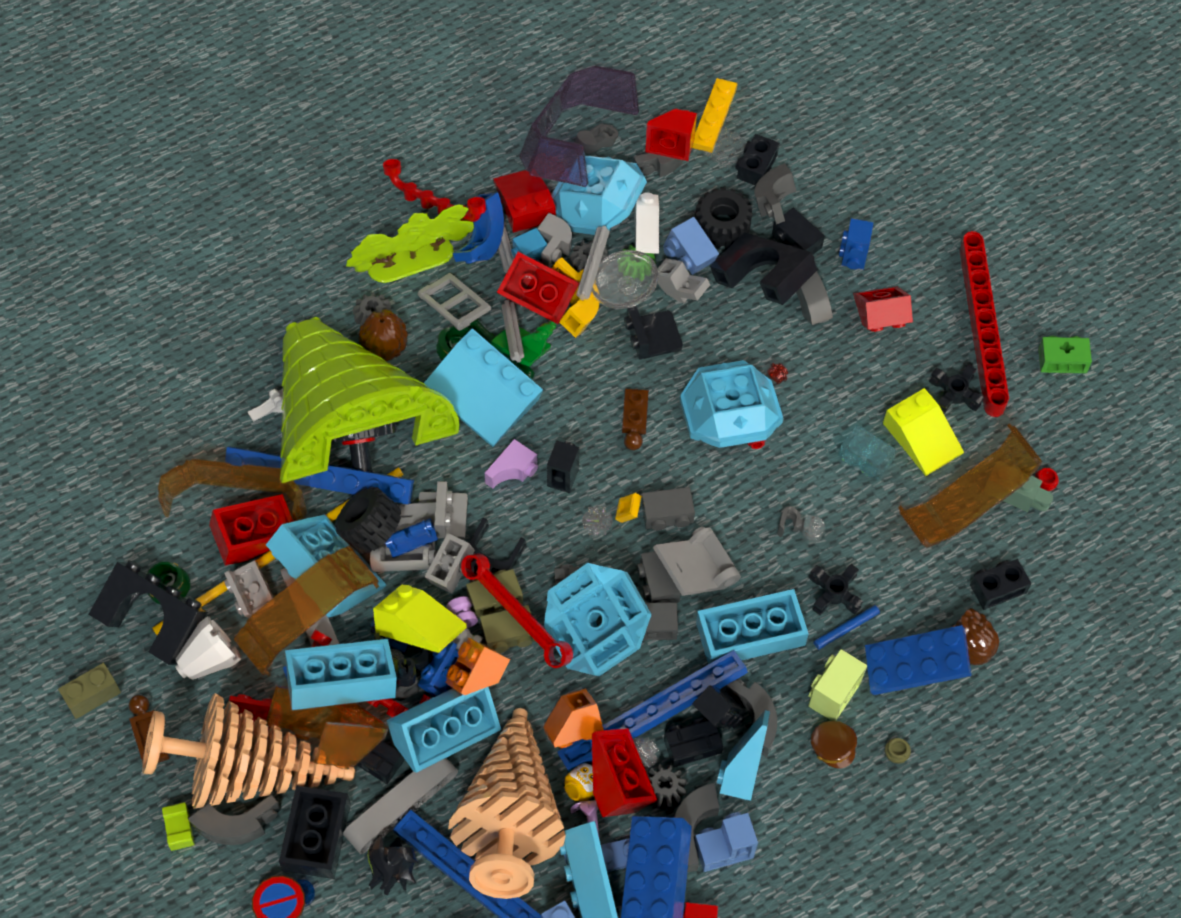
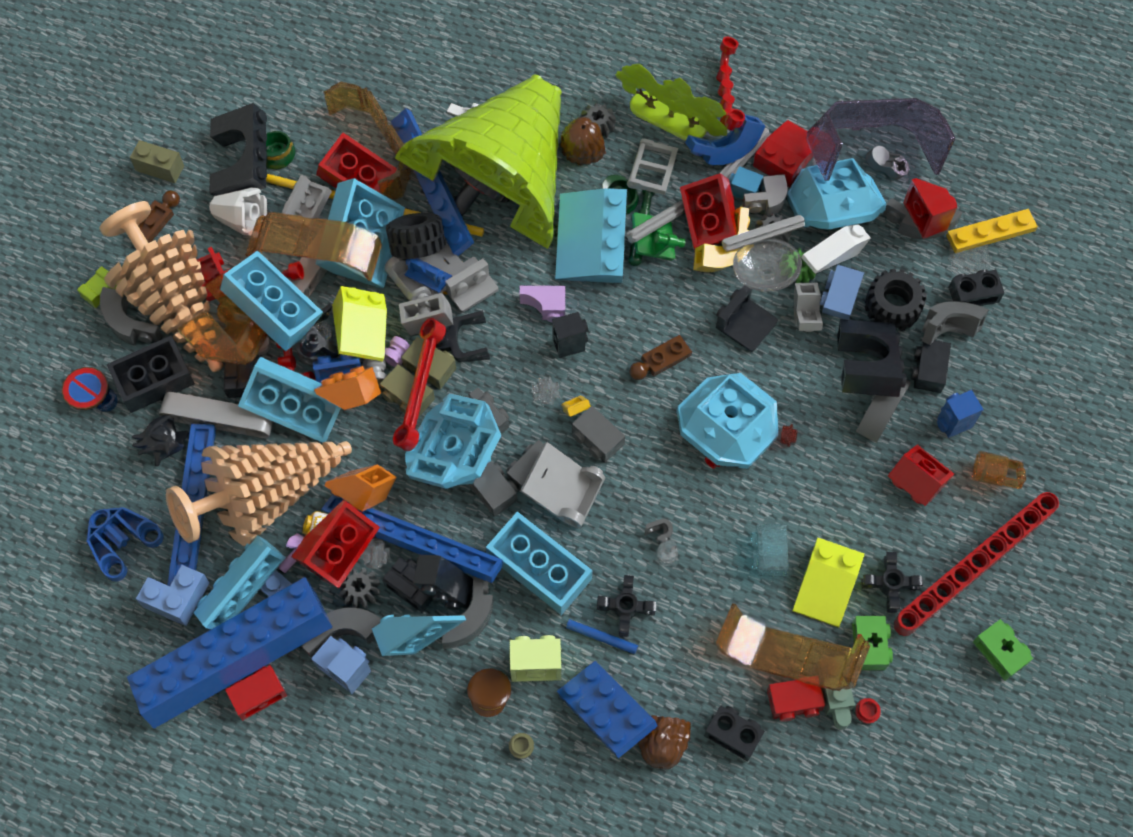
camera: 55 degrees right, 5 degrees up
(919, 255) = (993, 470): none -> clear orange piece
(988, 433) = (874, 628): none -> bright green brick
(1002, 521) = (794, 699): none -> red brick

